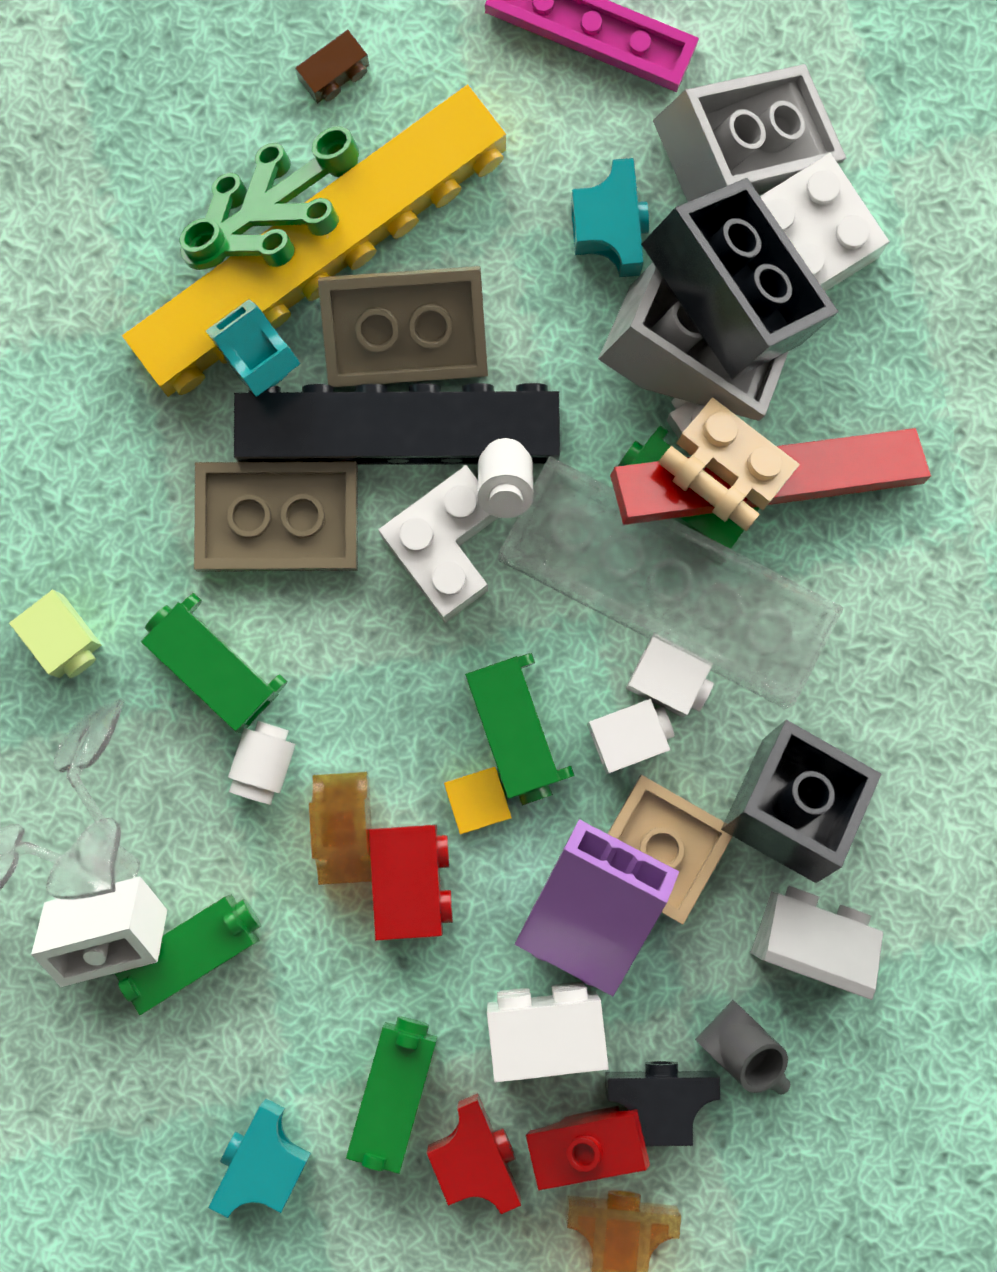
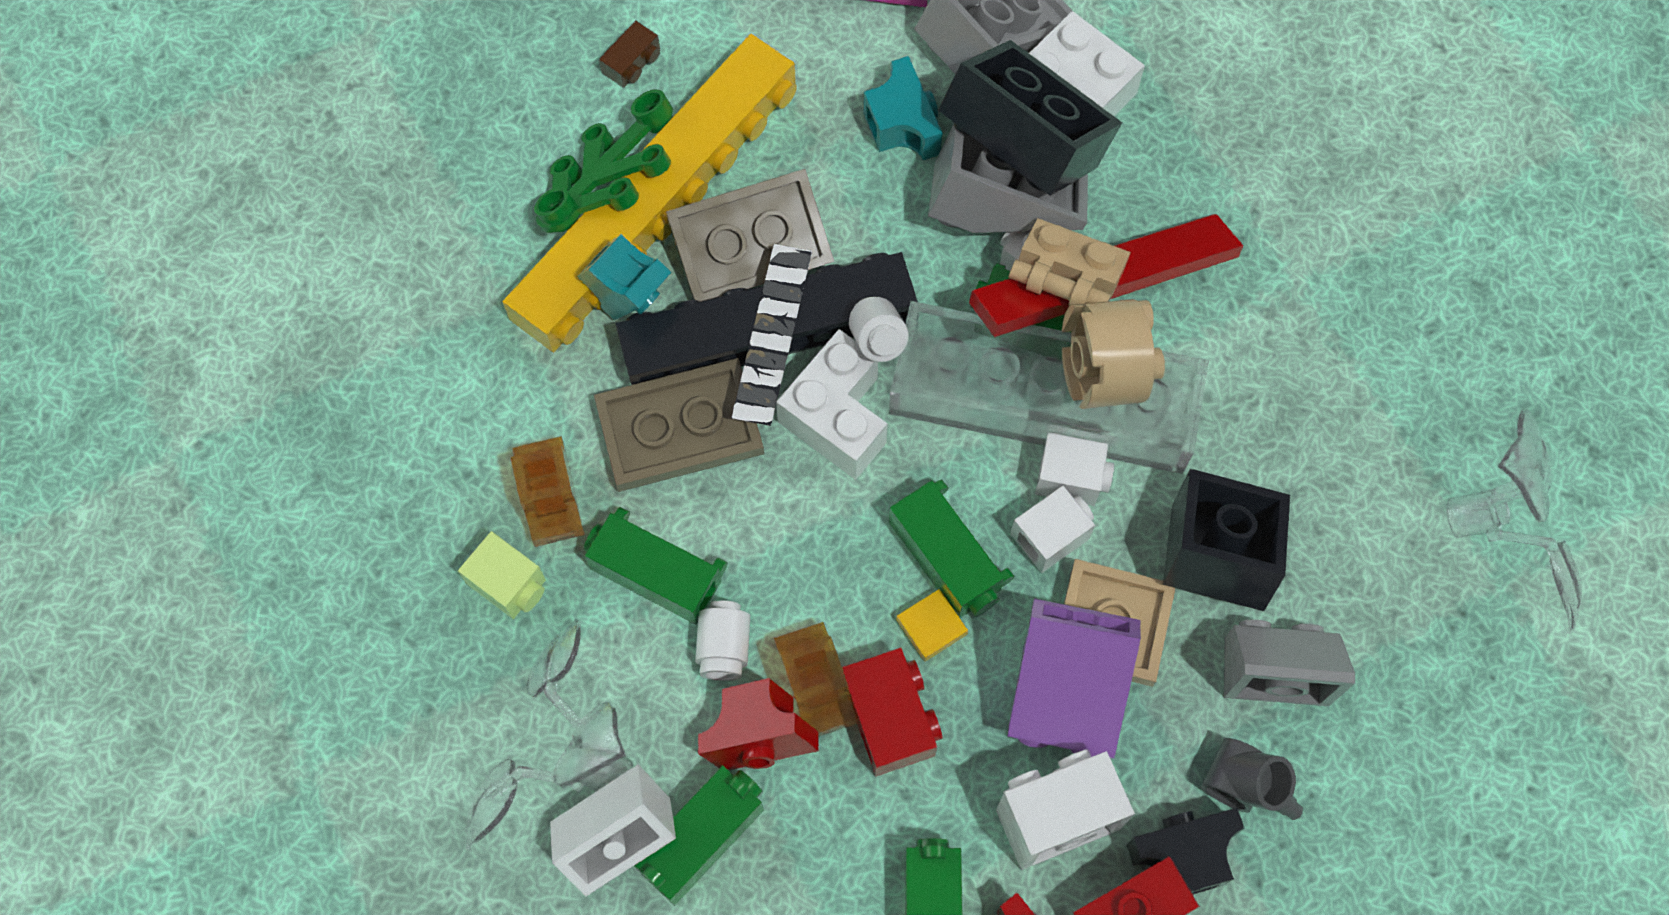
camera: 15 degrees left, 15 degrees down
(121, 553) = (547, 491): none -> clear orange brick
(269, 865) = (756, 728): none -> red brick
(395, 449) = (772, 335): none -> sticker
(736, 585) = (1111, 353): none -> tan brick

